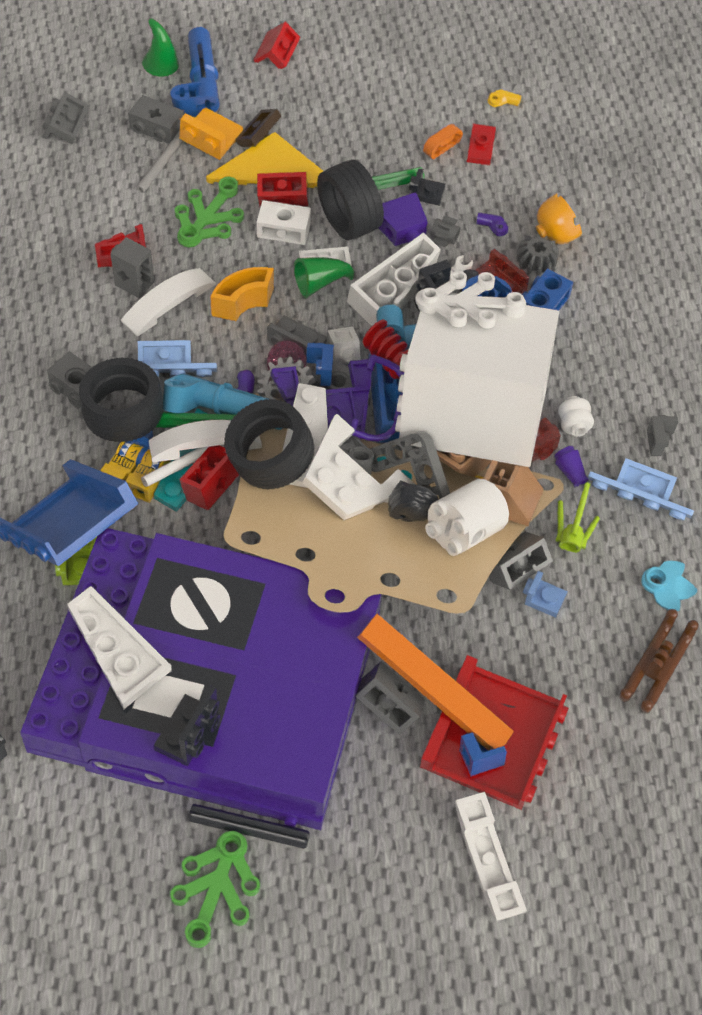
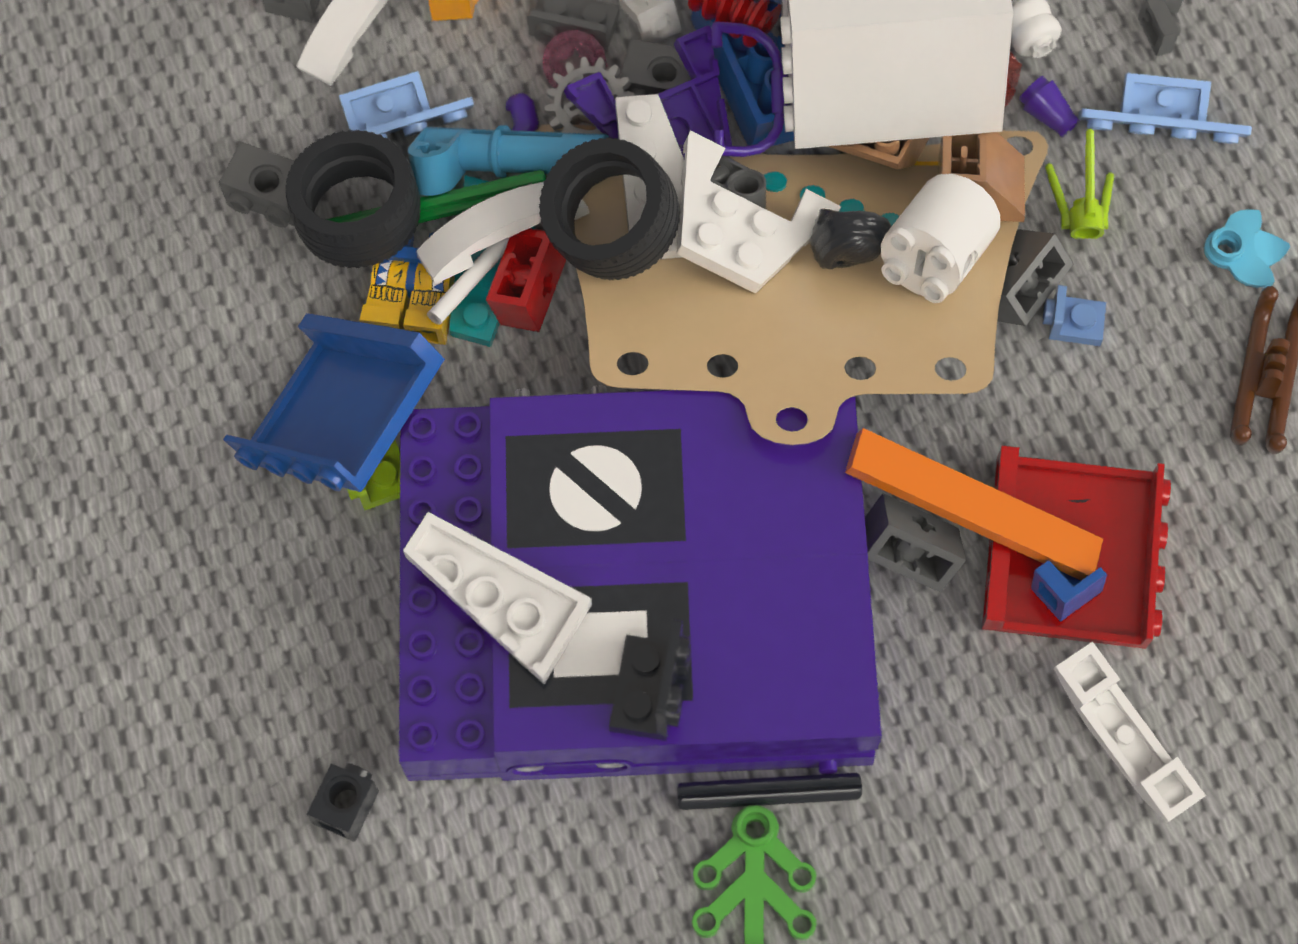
camera: 10 degrees left, 10 degrees up
(322, 356) = (634, 43): blue bracket -> none
(418, 458) = (835, 166): dark grey beam -> none

